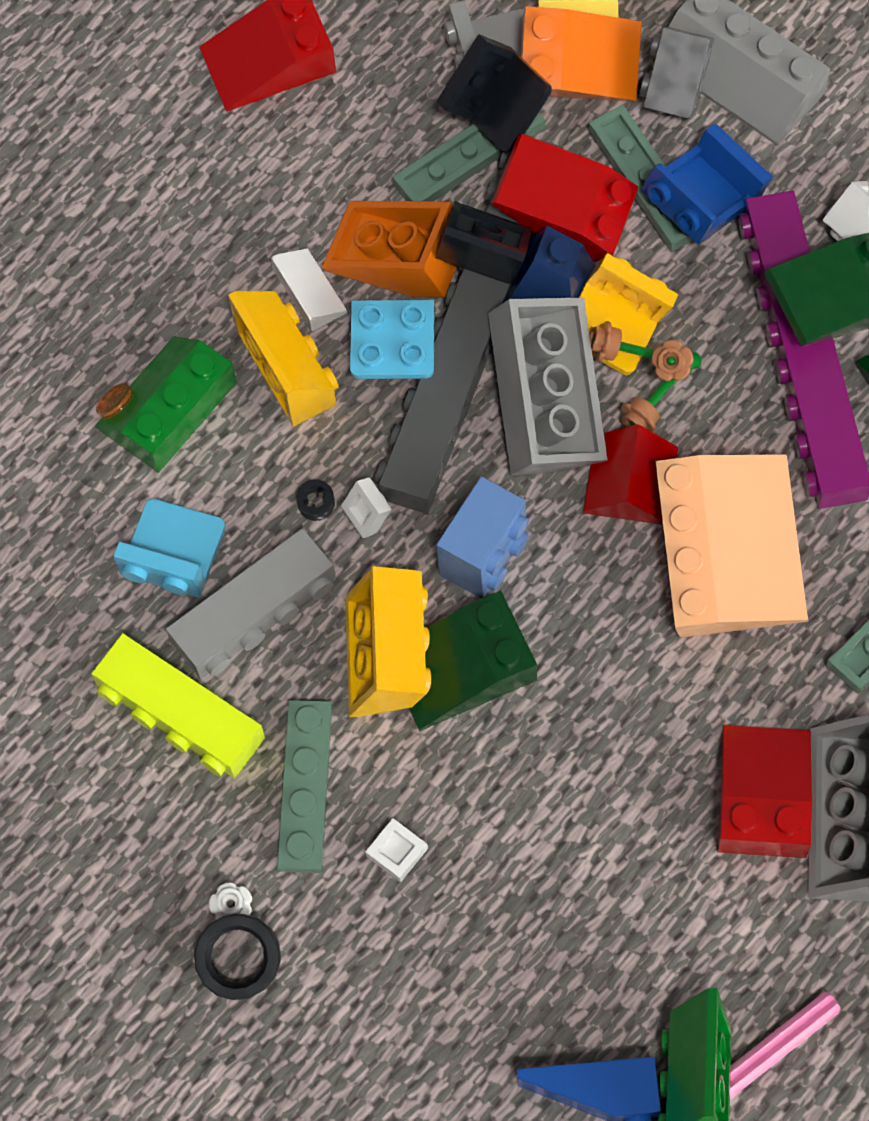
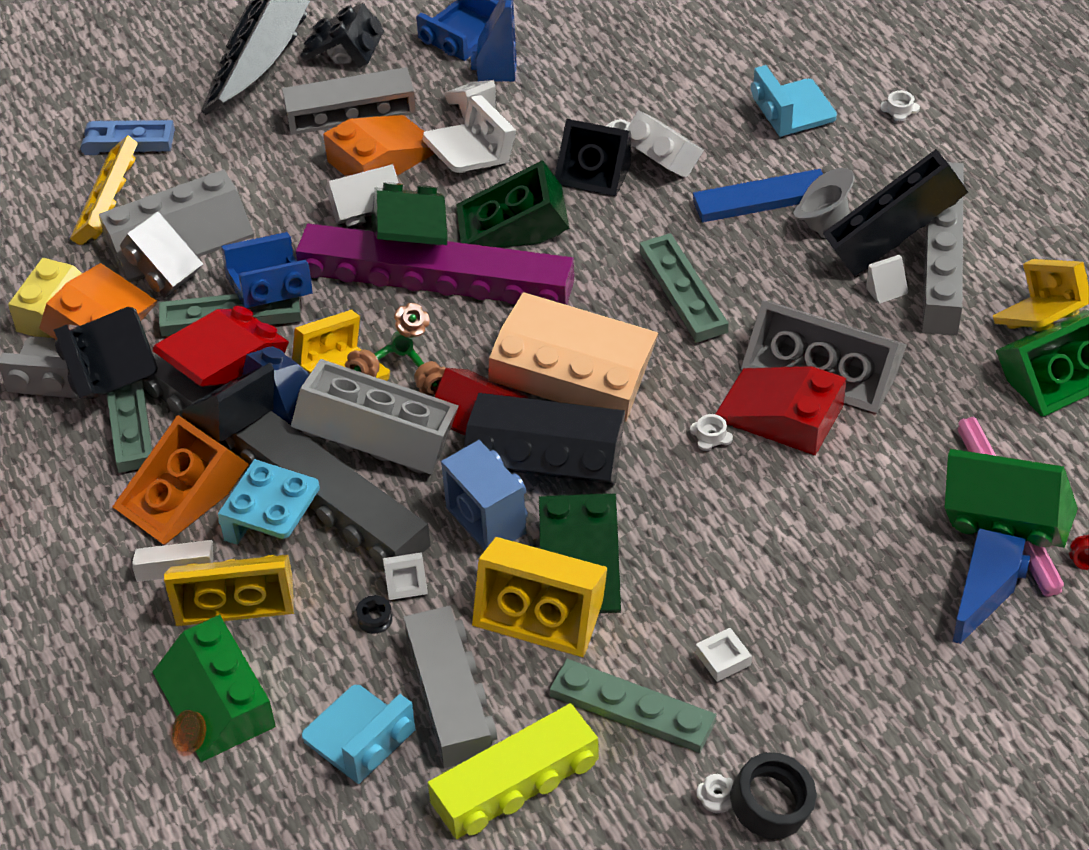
camera: 70 degrees left, 20 degrees down
(589, 564) = (549, 436): none -> black slope
(697, 719) = (711, 424): none -> white plate

